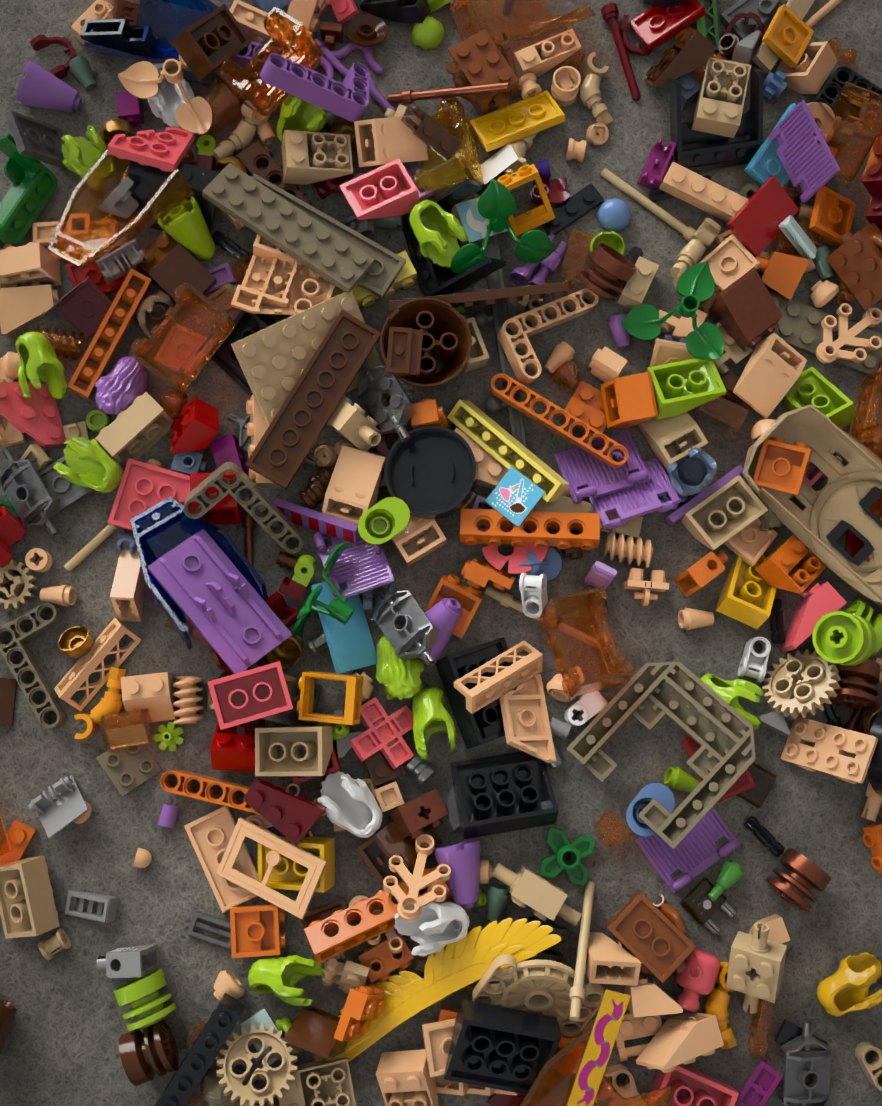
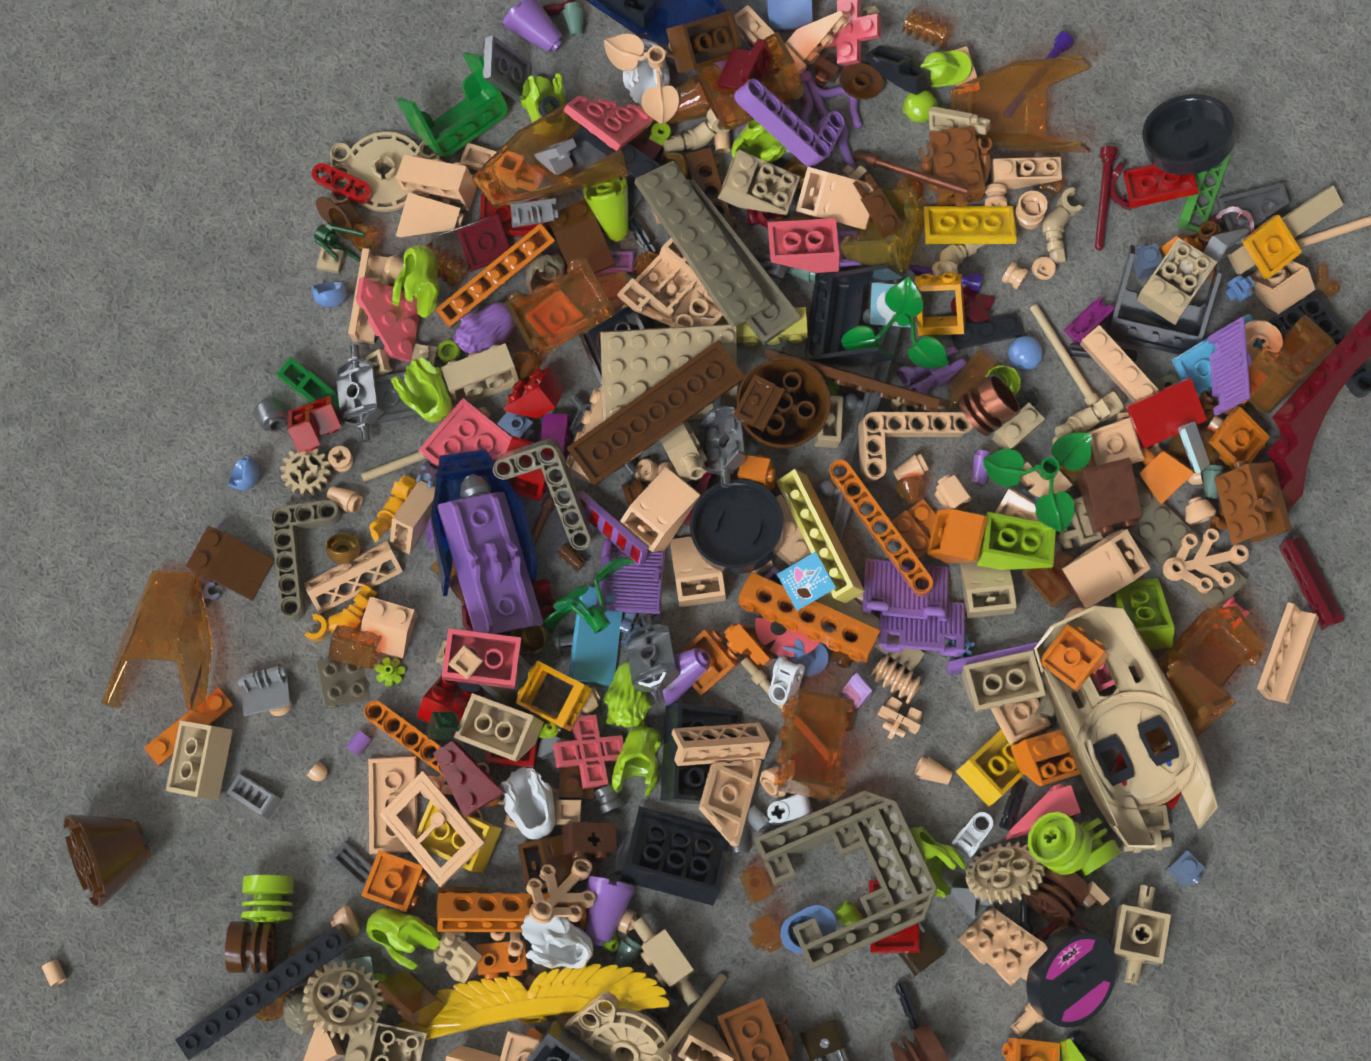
camera: 30 degrees right, 5 degrees down
(54, 944) = (206, 815): tan bush -> none
(94, 152) = (552, 100): none -> black bush
(103, 602) = (384, 517): none -> light orange piece
(114, 127) = (581, 86): pearl gold hair -> none
(129, 108) = (602, 71): magenta brick -> none
(129, 961) = (267, 858): light grey torso -> none
(174, 535) = (474, 486): none -> flat silver cone
(188, 699) = (421, 644): light nougat piece -> none
(237, 707) = (465, 662): none -> light nougat tile
(240, 768) = (442, 725): none -> clear green bracket
(256, 49) = (745, 65): none -> dark red bracket
(302, 575) = (578, 570): leg -> none
(311, 495) = (617, 503): reddish brown wheel -> none
(361, 1004) = (454, 990): orange plate -> none
(384, 520) = (673, 552): lime piece -> none
(436, 232) = (841, 302): lime hair -> none
(456, 33) = (949, 119): none -> tan hinge
(498, 163) = (930, 259): white sticker -> none
(578, 849) = (709, 927): green plant -> none
(584, 788) = (755, 885): none -> clear orange brick
(685, 56) = (1155, 228): reddish brown slope -> none
(692, 854) = (832, 985): medium lavender window -> none
(693, 473) = (988, 632): sand blue hair -> none
(701, 572) = (957, 728): orange torso -> none
(729, 875) = (856, 1026): bright green cone -> none

